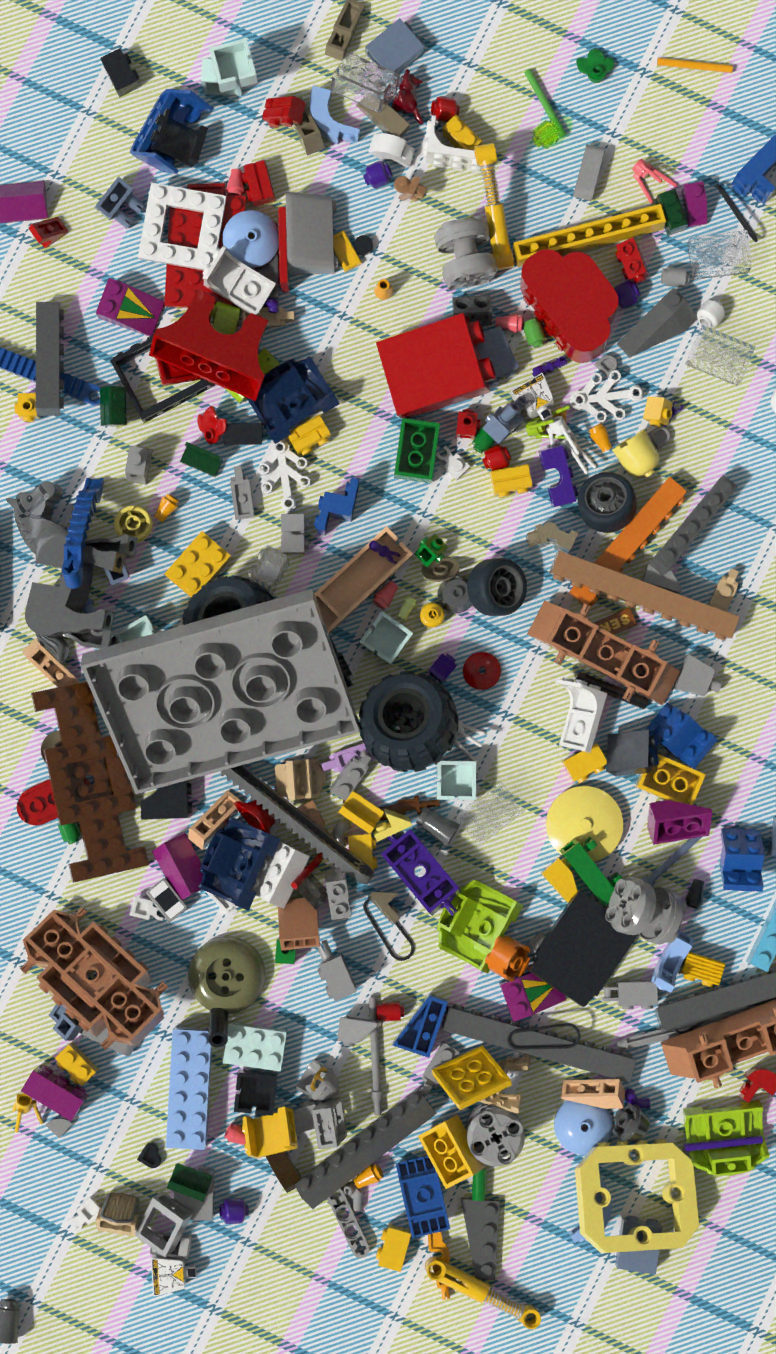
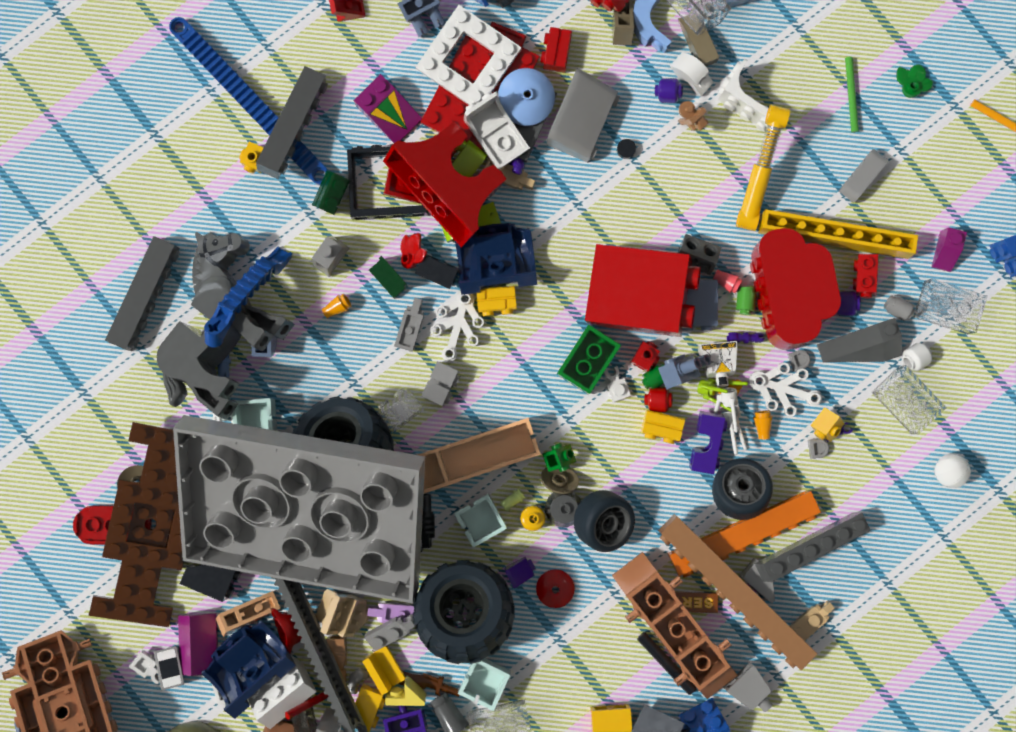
camera: 30 degrees right, 0 degrees up
(48, 665) = (159, 400): light nougat slope -> none
(70, 832) = (110, 566): green brick -> none
(134, 522) = (299, 308): light yellow cone -> none
(198, 564) = (340, 373): yellow brick -> none
(235, 183) = (535, 40): coral cone -> none
(283, 265) = (542, 139): red tile -> none
(337, 506) = (491, 377): blue bracket -> none
(345, 251) = (607, 147): yellow tile -> none
(383, 293) = (624, 201): light orange cone -> none
(383, 551) = (515, 439): dark purple piece -> none
(385, 596) = (498, 479): coral cone -> none
(406, 98) = (727, 32): dark red animal -> none
(444, 108) = (758, 58): red head -> none
(460, 134) = (761, 88): yellow brick -> none
(460, 733) = (509, 641): white plant -> none
(462, 239) = (719, 184): light grey piece -> none
(546, 134) = (840, 123): clear neon green head -> none
(551, 534) = (676, 492): dark tan hips -> none
(583, 714) = (628, 676): white bracket -> none
(637, 455) = (790, 457): light yellow cylinder -> none
(644, 169) = (915, 195): coral plant -> none
(672, 211) = (926, 246): dark green brick -> none
(743, 222) = (983, 274): black piece -> none

